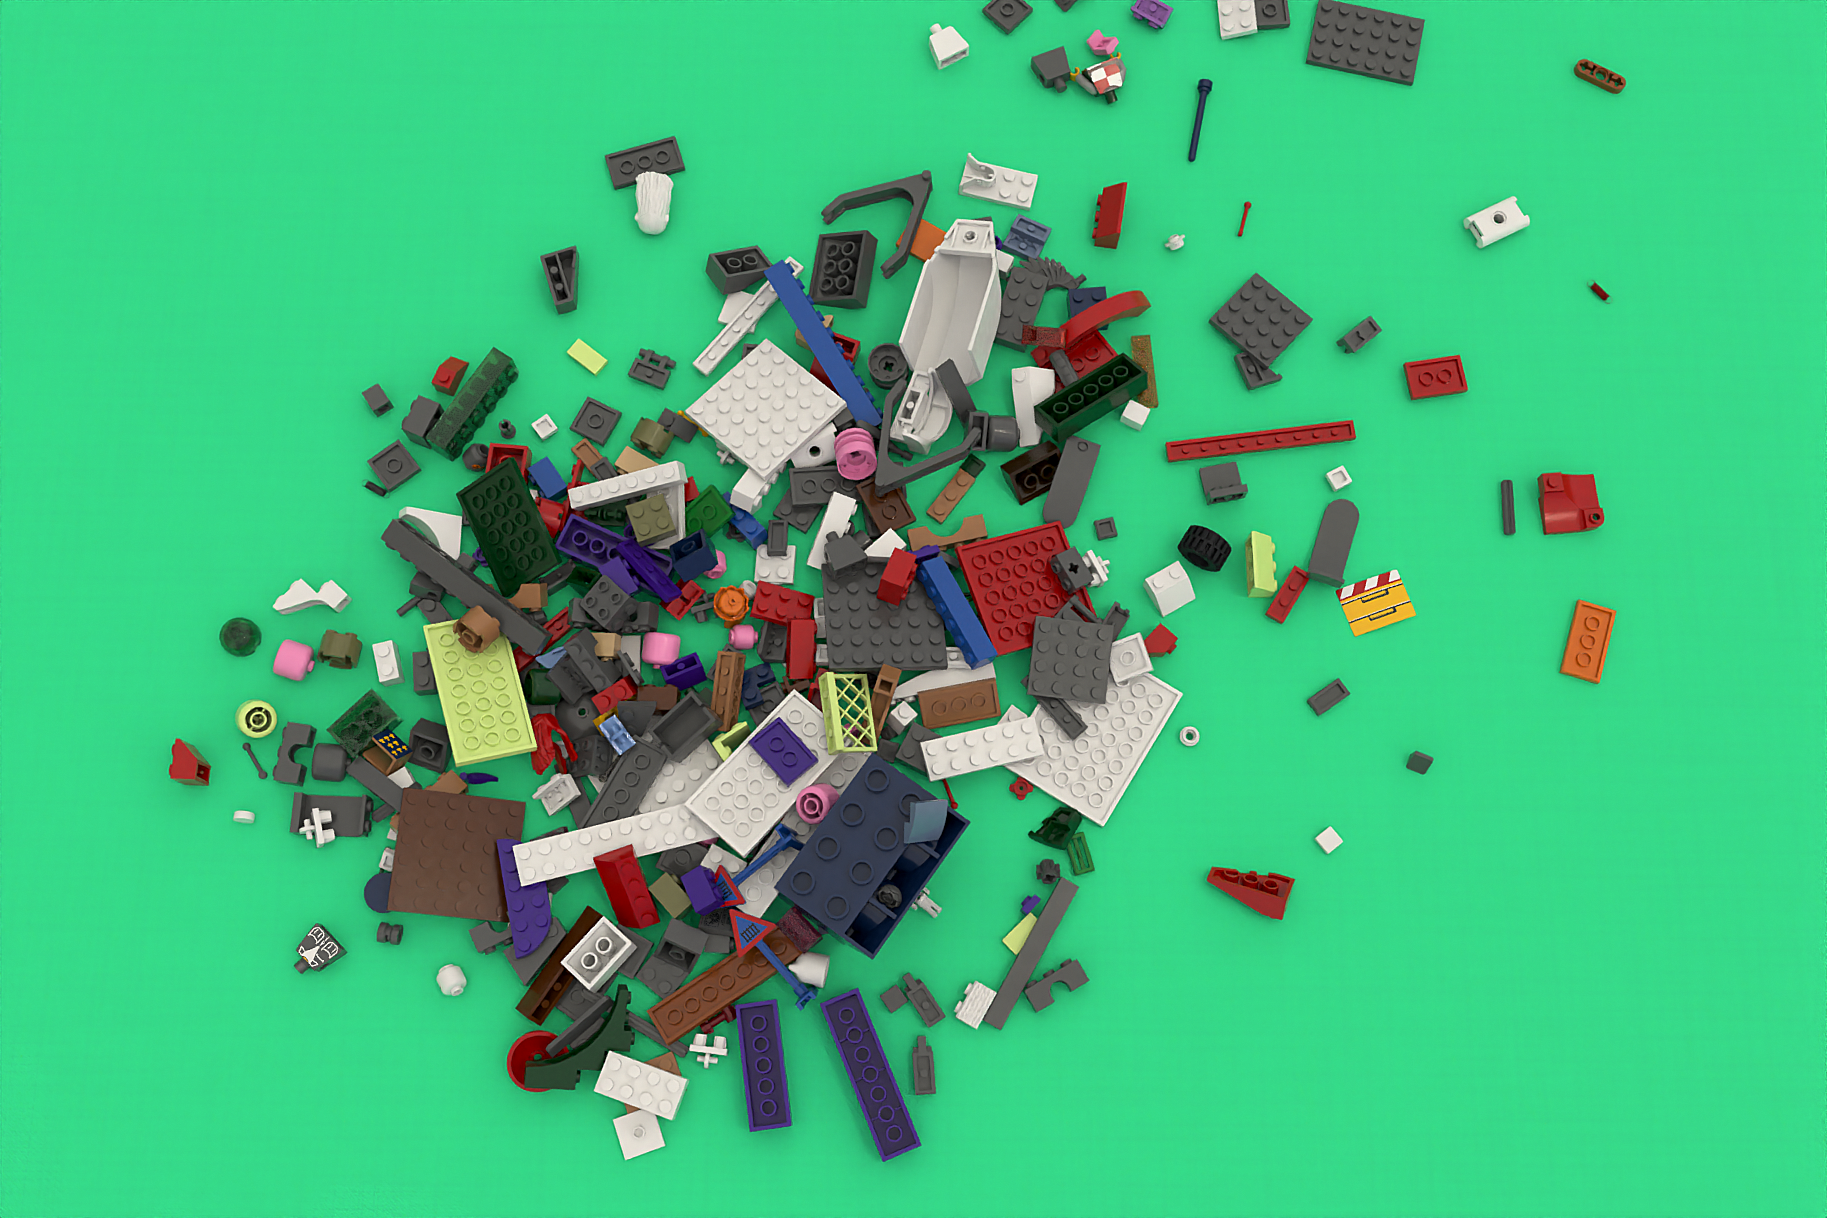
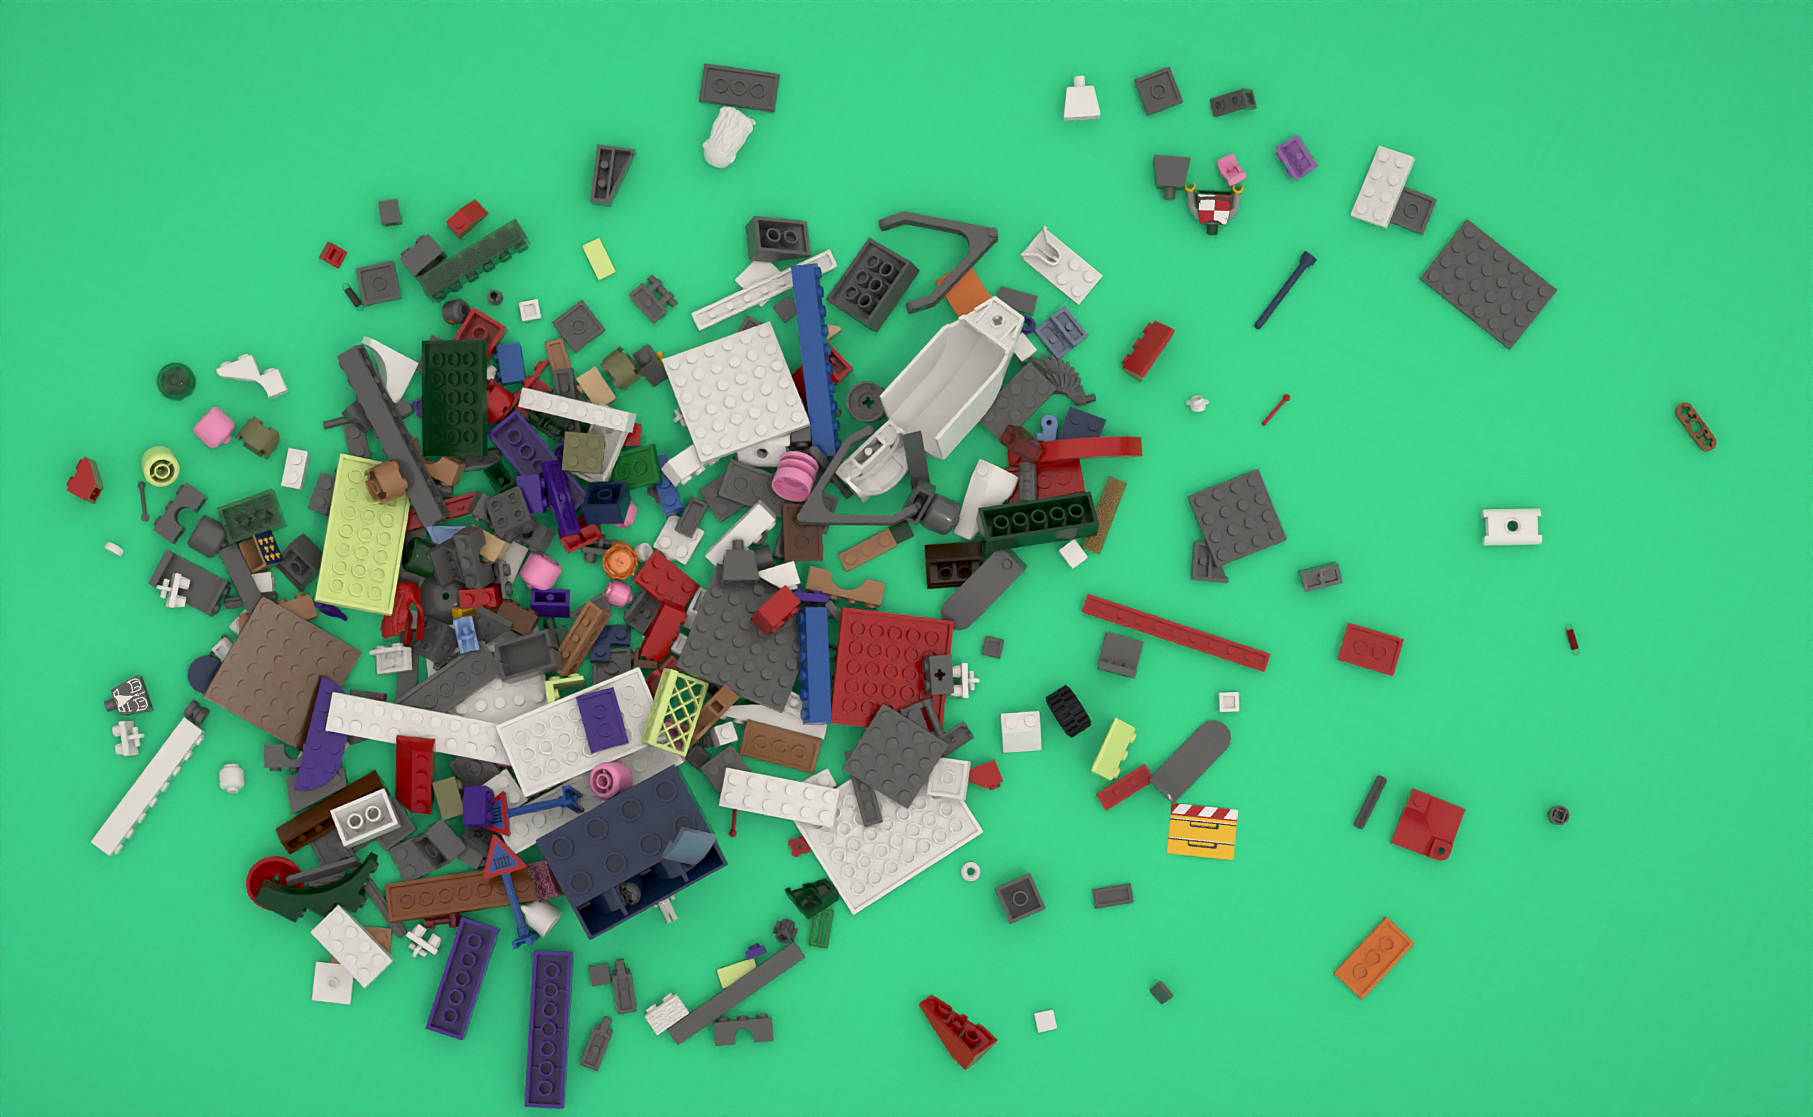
camera: 25 degrees right, 10 degrees up
(334, 989) = (129, 737): none -> white hips
(341, 460) = (333, 255): none -> red slope
(372, 1028) = (148, 786): none -> white brick
(776, 325) = (785, 309): none -> dark grey tile
(1056, 316) = (1049, 429): none -> medium blue leg
(1248, 737) = (1019, 898): none -> dark grey brick
(1671, 442) = (1555, 813): none -> dark grey wheel

